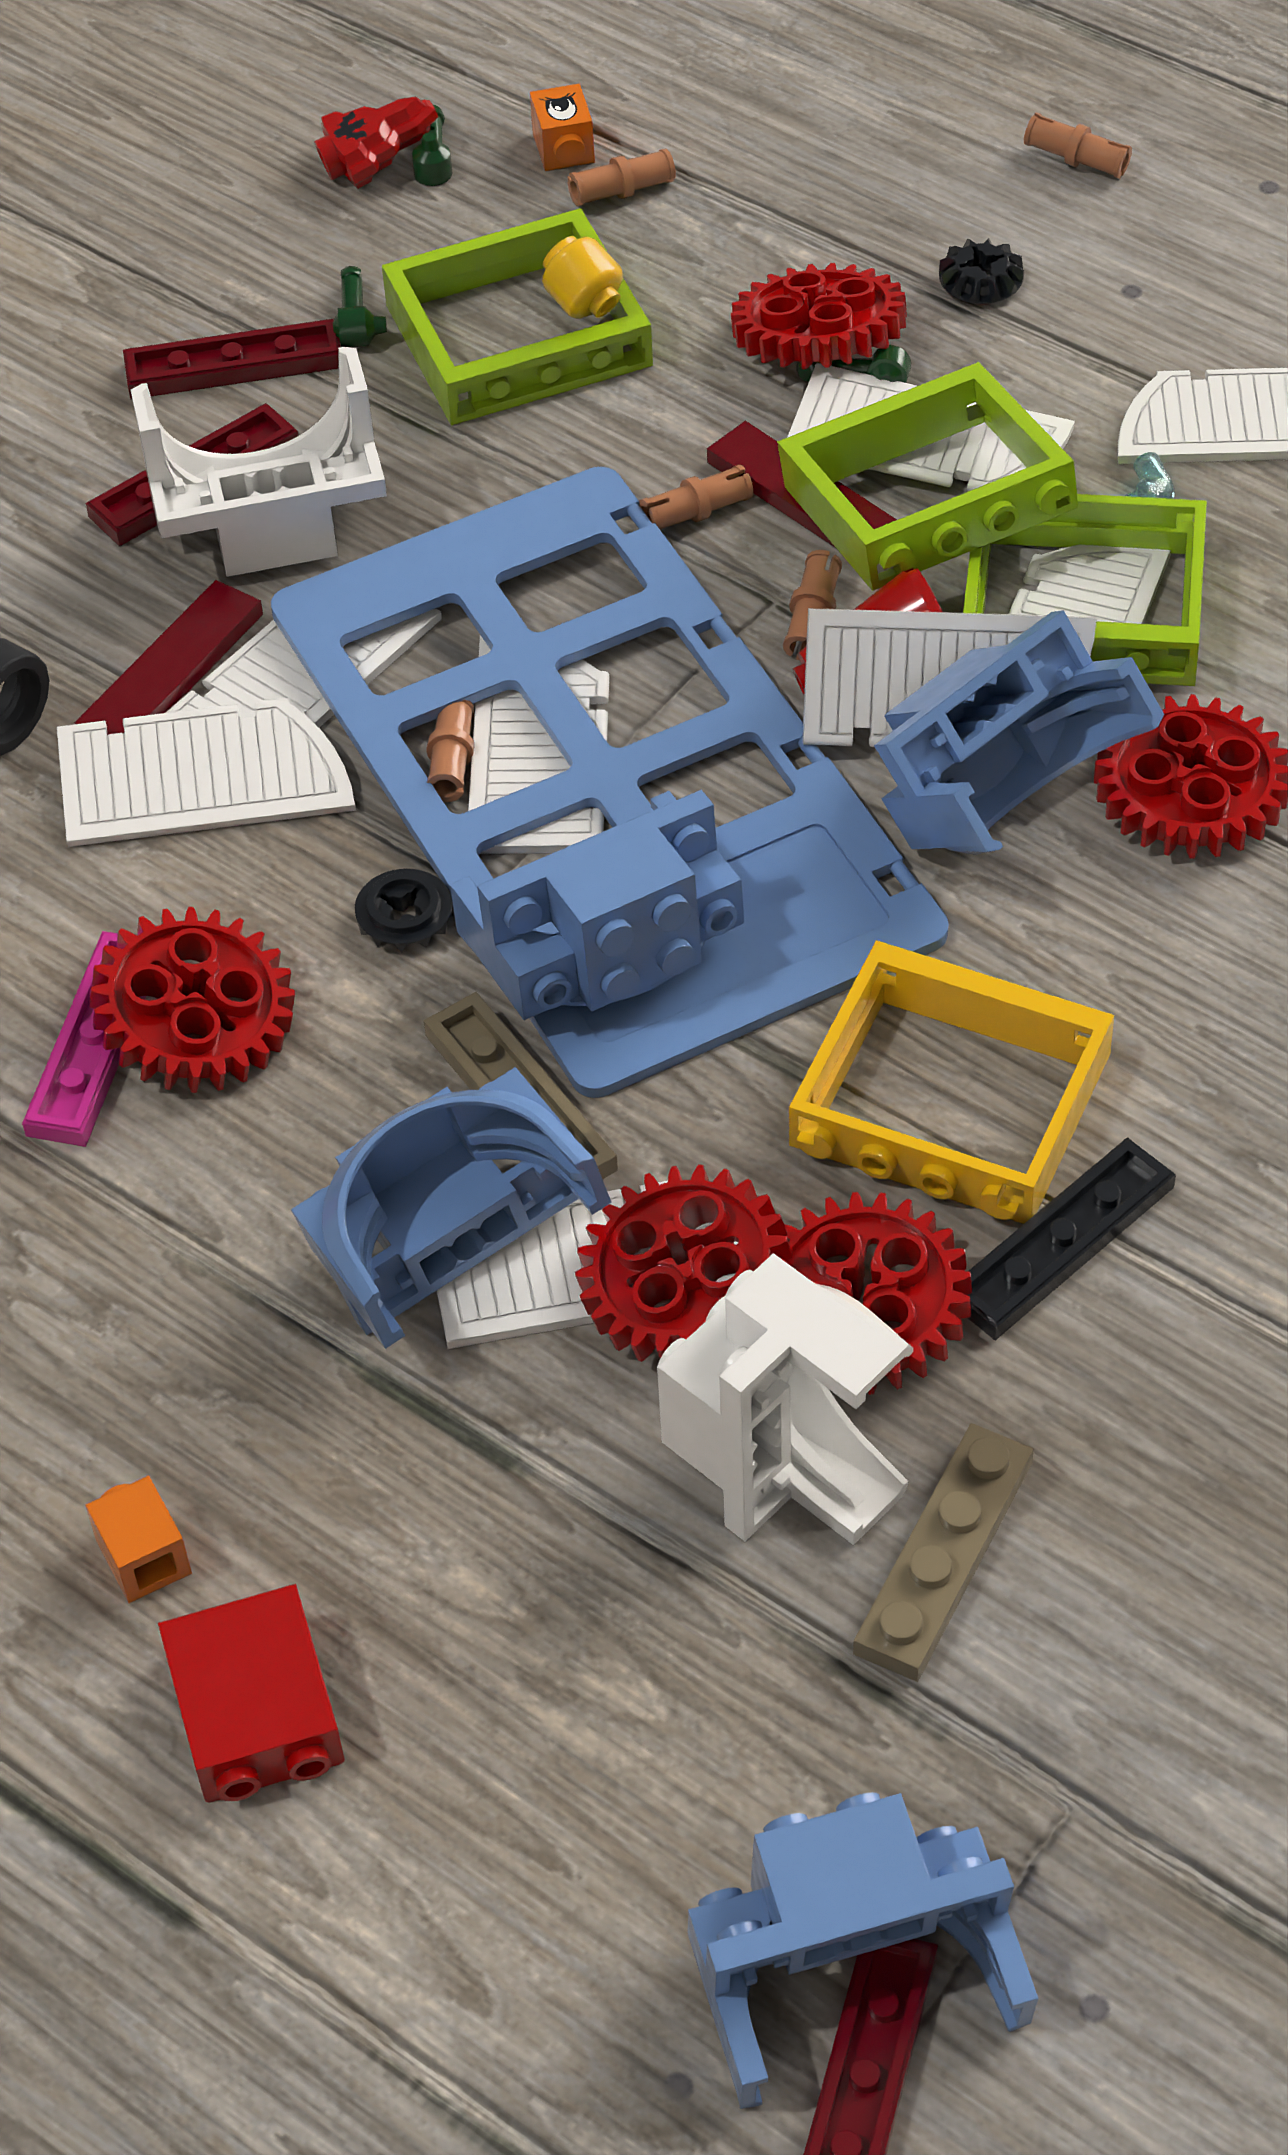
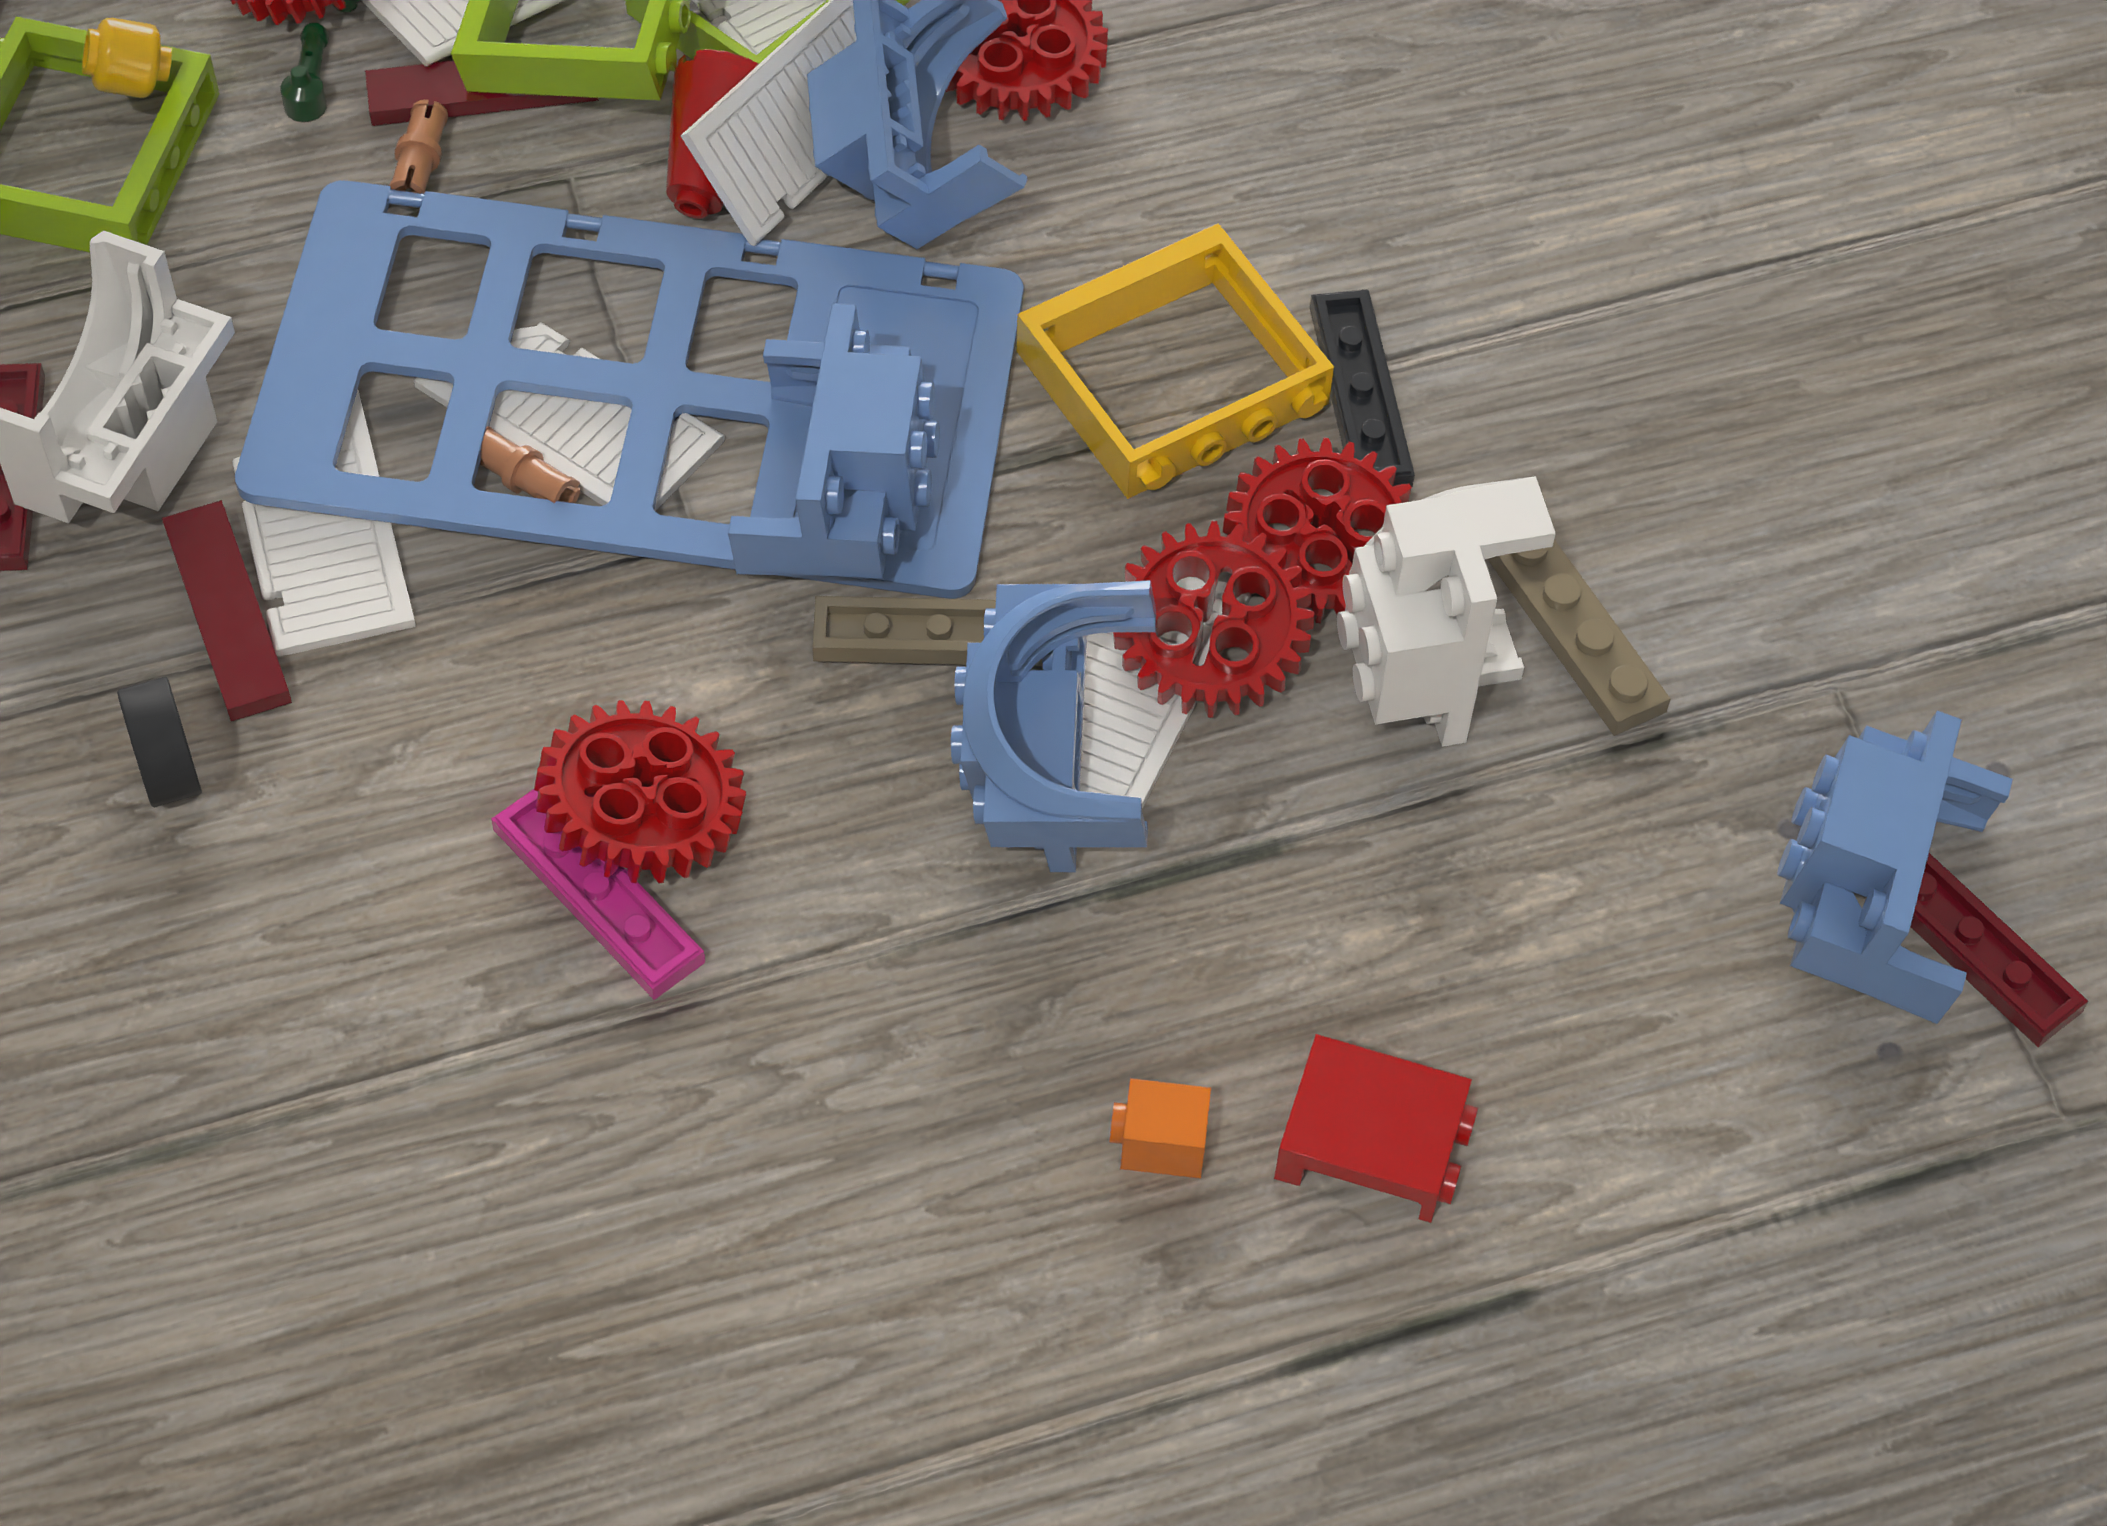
camera: 60 degrees left, 5 degrees up
(197, 772) = (372, 656): white piece -> none
(398, 891) = (685, 582): black gear -> none
(691, 402) = (303, 89): none -> dark green piece
(814, 592) = (613, 152): nougat pin -> none

